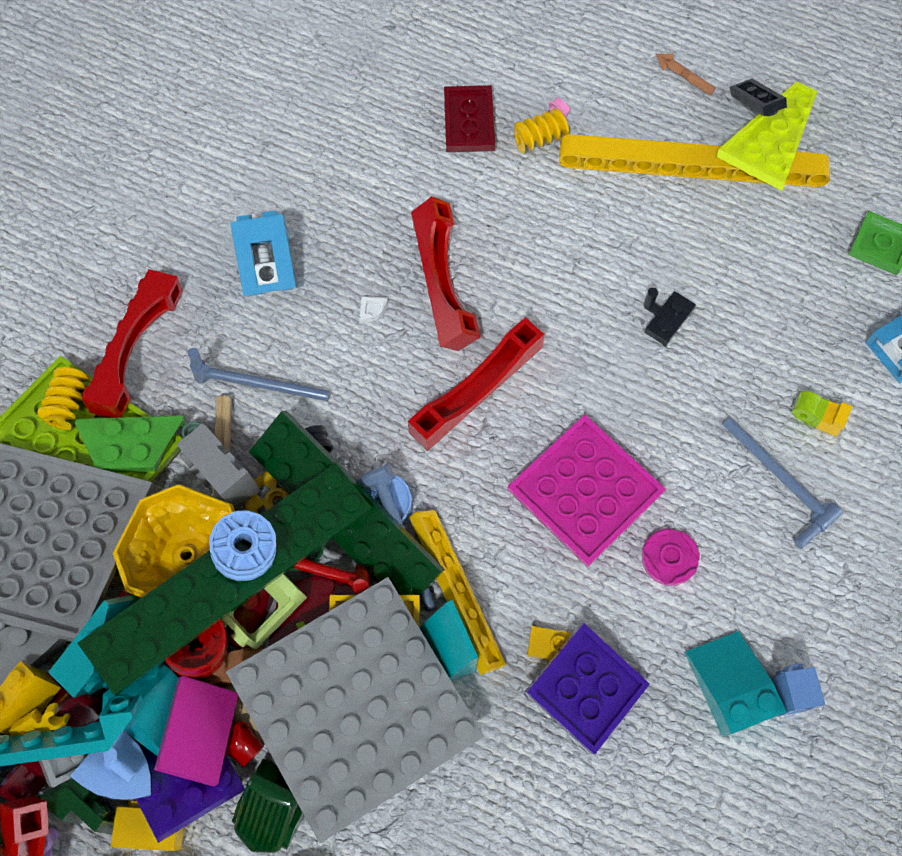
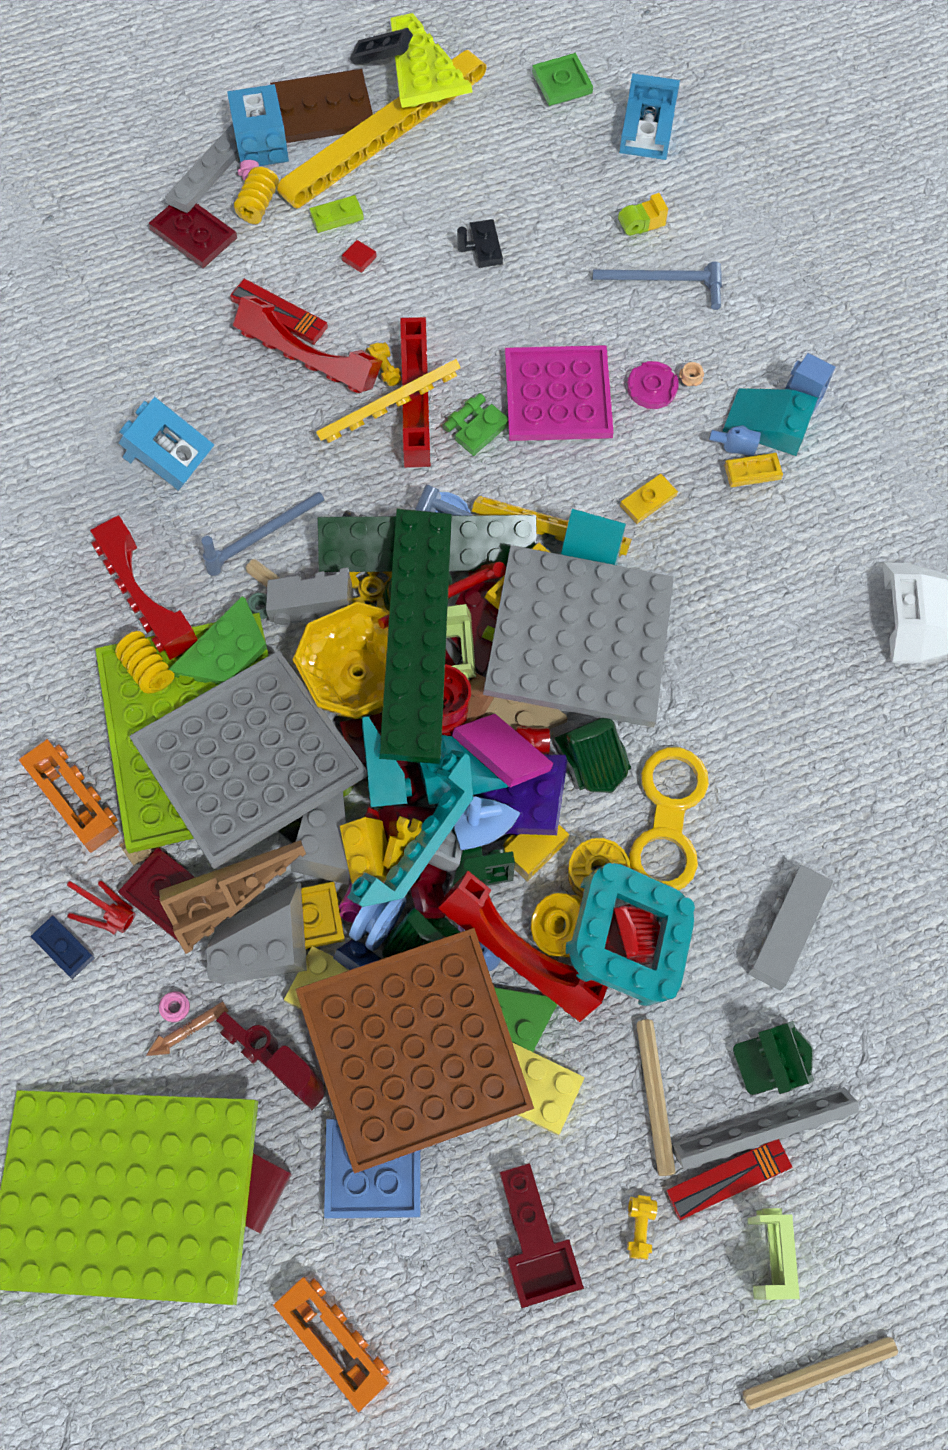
camera: 50 degrees left, 0 degrees up
(242, 527) = (411, 613): light blue wheel -> none
(372, 308) = (280, 415): white tile -> none
(458, 376) = (399, 396): none -> yellow plate
(461, 235) = (291, 316): none -> red tile
(490, 328) = (382, 352): none -> yellow bar
(497, 459) = (481, 429): none -> bright green plate
(542, 81) = (204, 172): none -> light grey plate
(563, 242) = (359, 256): none -> red tile
(585, 195) = (336, 213): none -> lime plate
(587, 688) = (694, 500): dark purple plate -> none
(596, 79) = (258, 125): none -> dark azure brick
(667, 61) = (285, 74): nougat piece -> none
(668, 104) = (323, 104): none -> reddish brown plate
(668, 712) = (753, 470): none -> yellow plate
(682, 674) = (738, 440): none -> medium blue piece
(710, 573) = (693, 369): none -> light nougat plate

